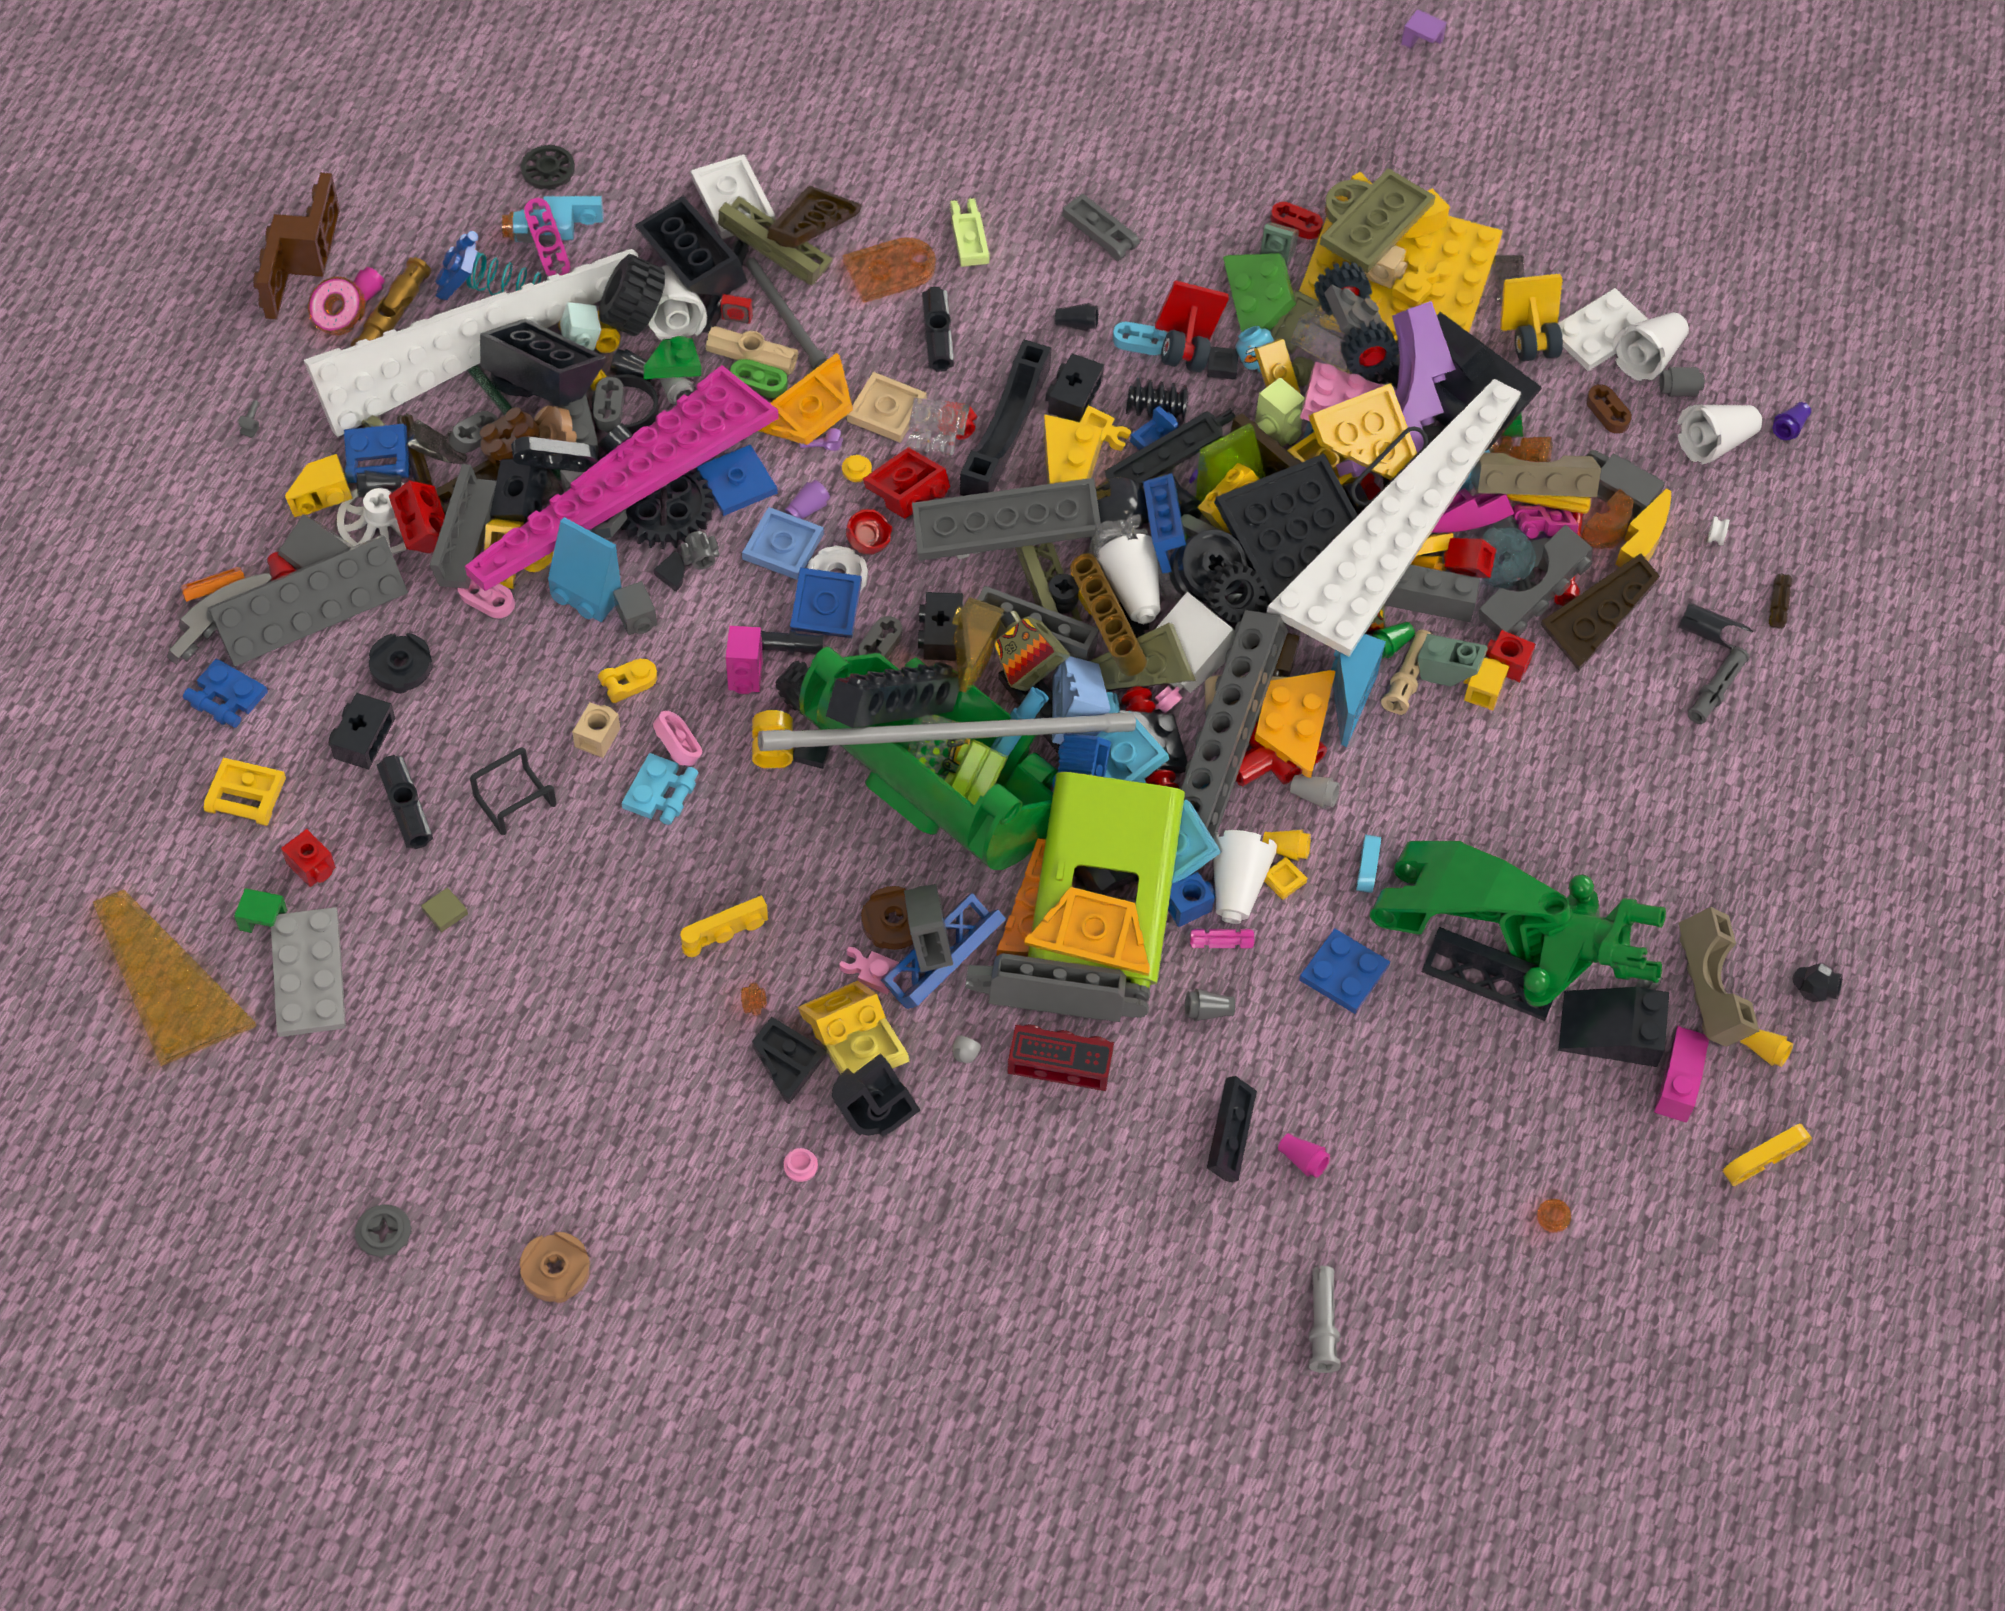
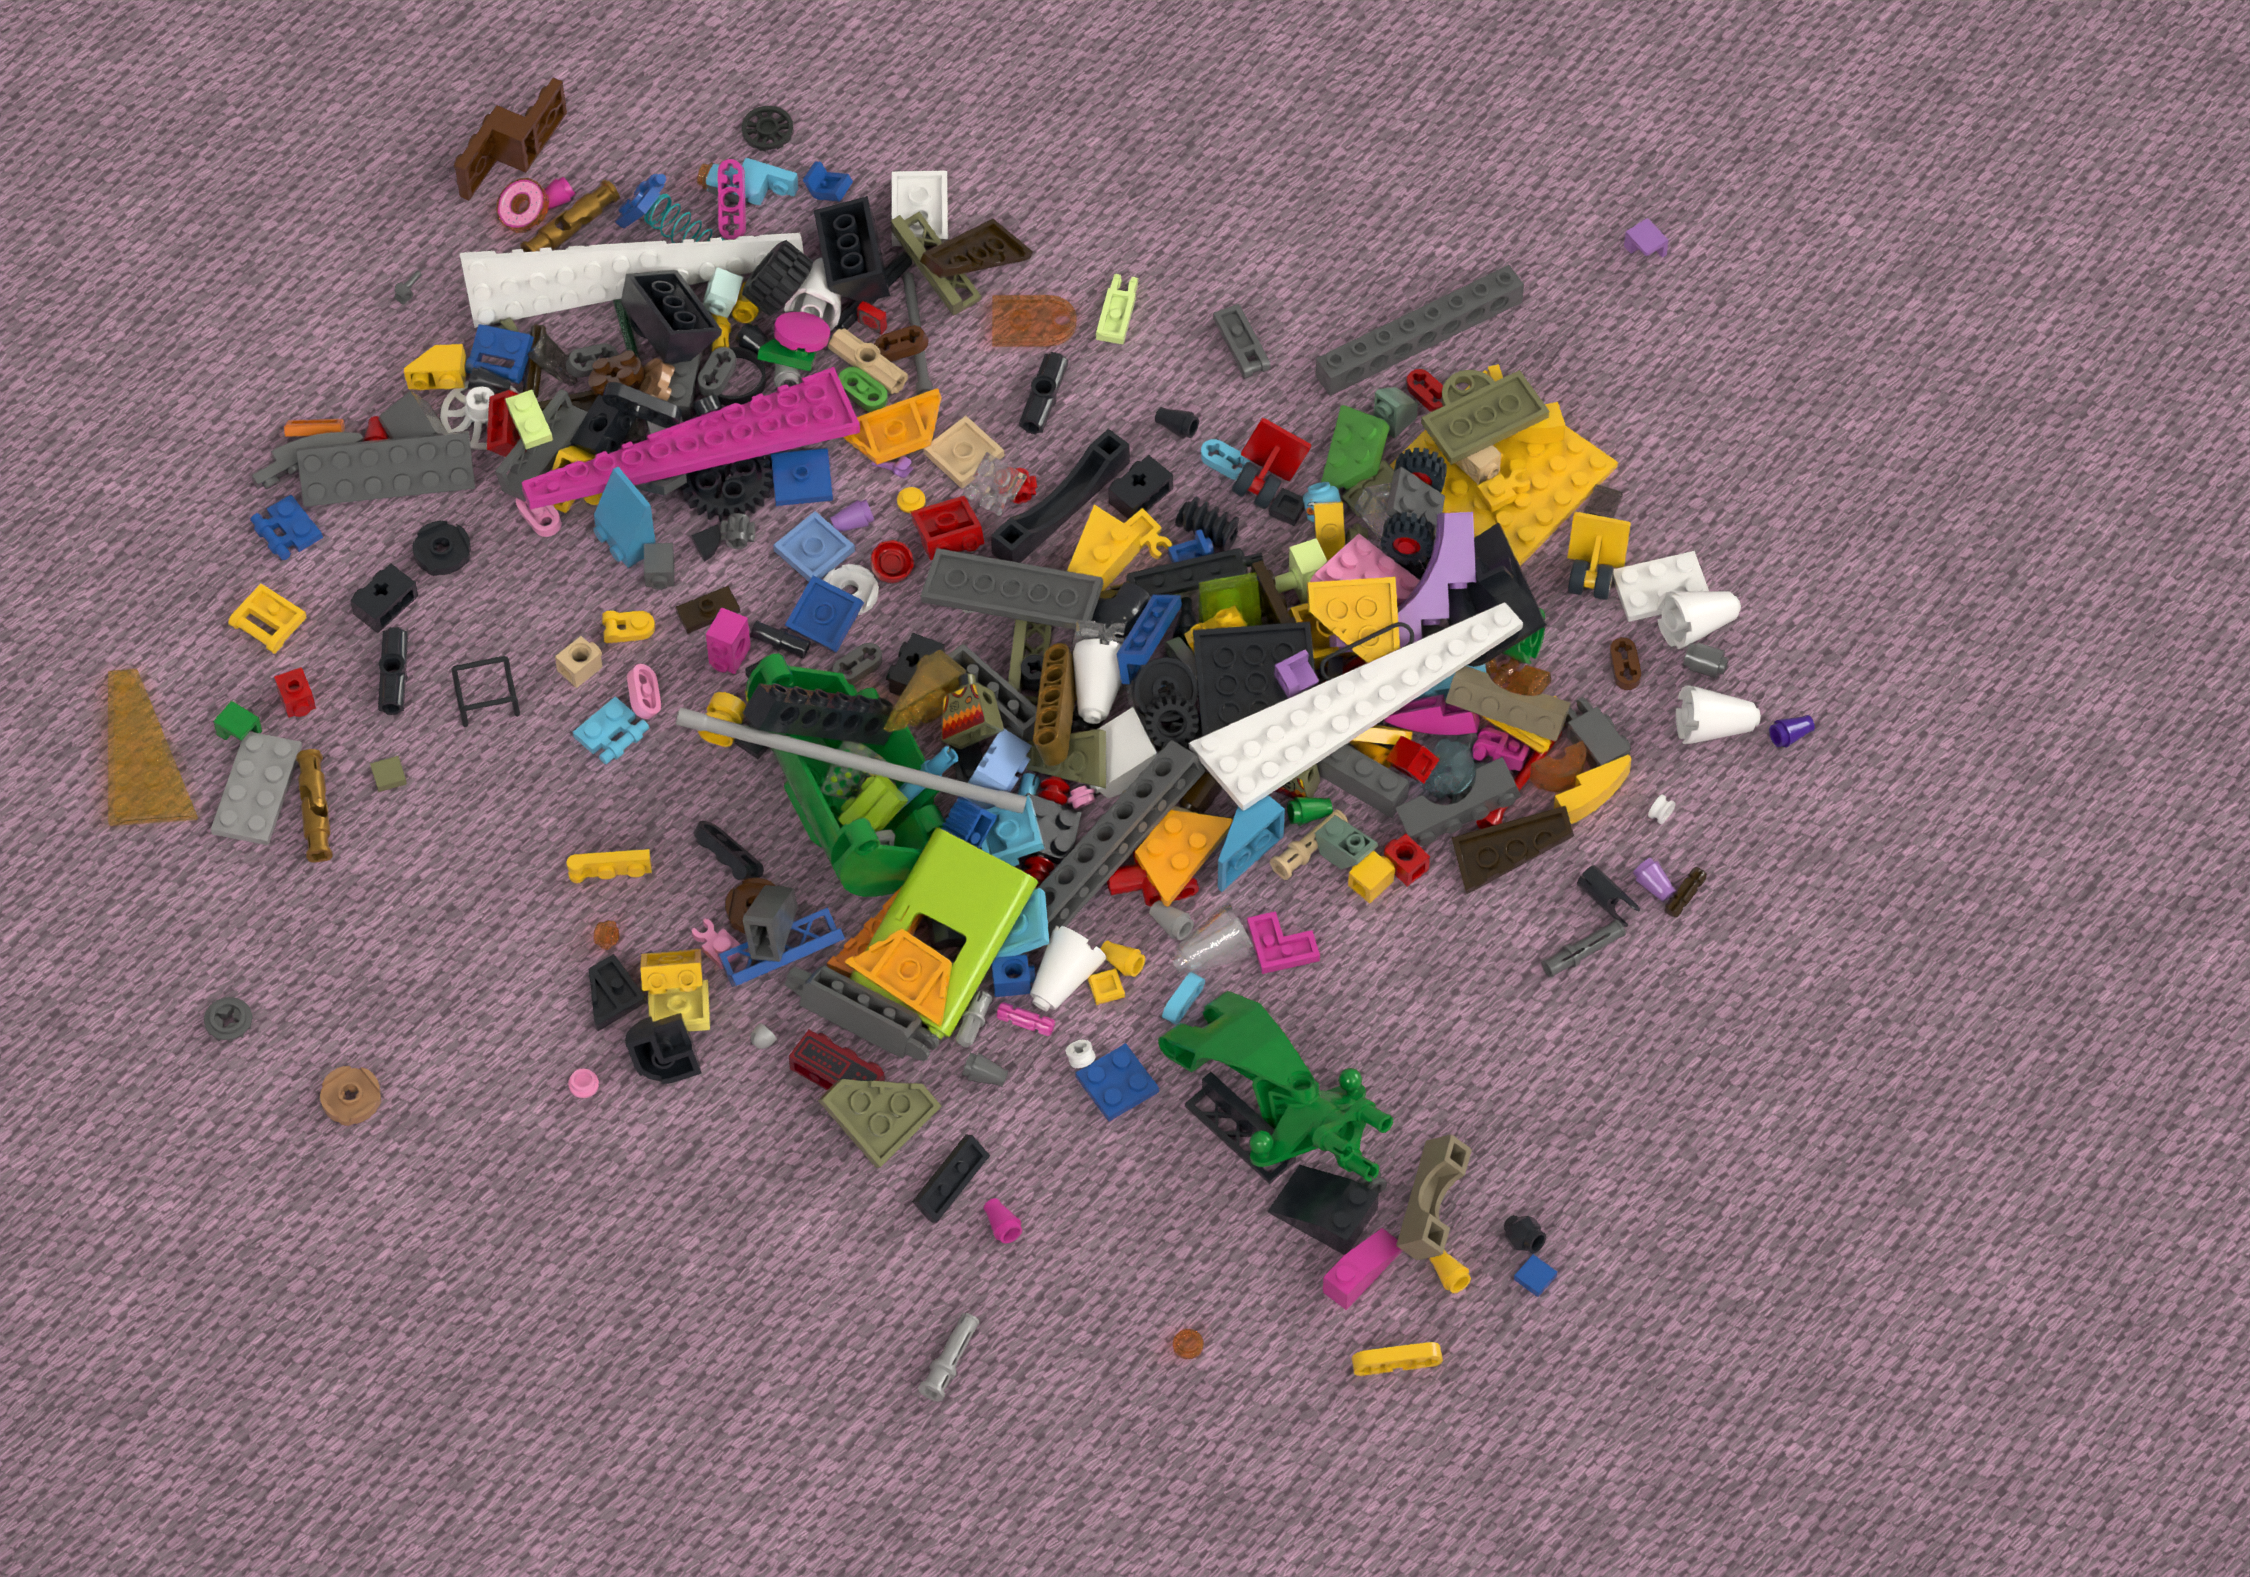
camera: 25 degrees right, 0 degrees up
(378, 966) = (312, 795): none -> pearl gold piece
(444, 502) = (529, 419): none -> yellowish green plate
(632, 201) = (825, 184): none -> blue bracket
(676, 339) = (801, 331): none -> dark pink tile
(702, 637) = (703, 610): none -> dark brown plate
(777, 324) = (901, 343): none -> reddish brown beam
(839, 870) = (728, 851): none -> black plate
(1129, 1088) = (879, 1114): none -> olive plate
(1172, 958) = (973, 1019): none -> light grey axle
(1261, 168) = (1419, 330): none -> dark grey brick
(1299, 961) = (1080, 1053): none -> white bush
(1335, 509) = (1295, 674): none -> medium lavender panel
(1375, 797) = (1214, 944): none -> clear cone
(1430, 785) = (1280, 952): none -> dark pink plate
(1747, 598) = (1654, 879): none -> medium lavender cone
(1849, 1020) = (1535, 1275): none -> blue tile

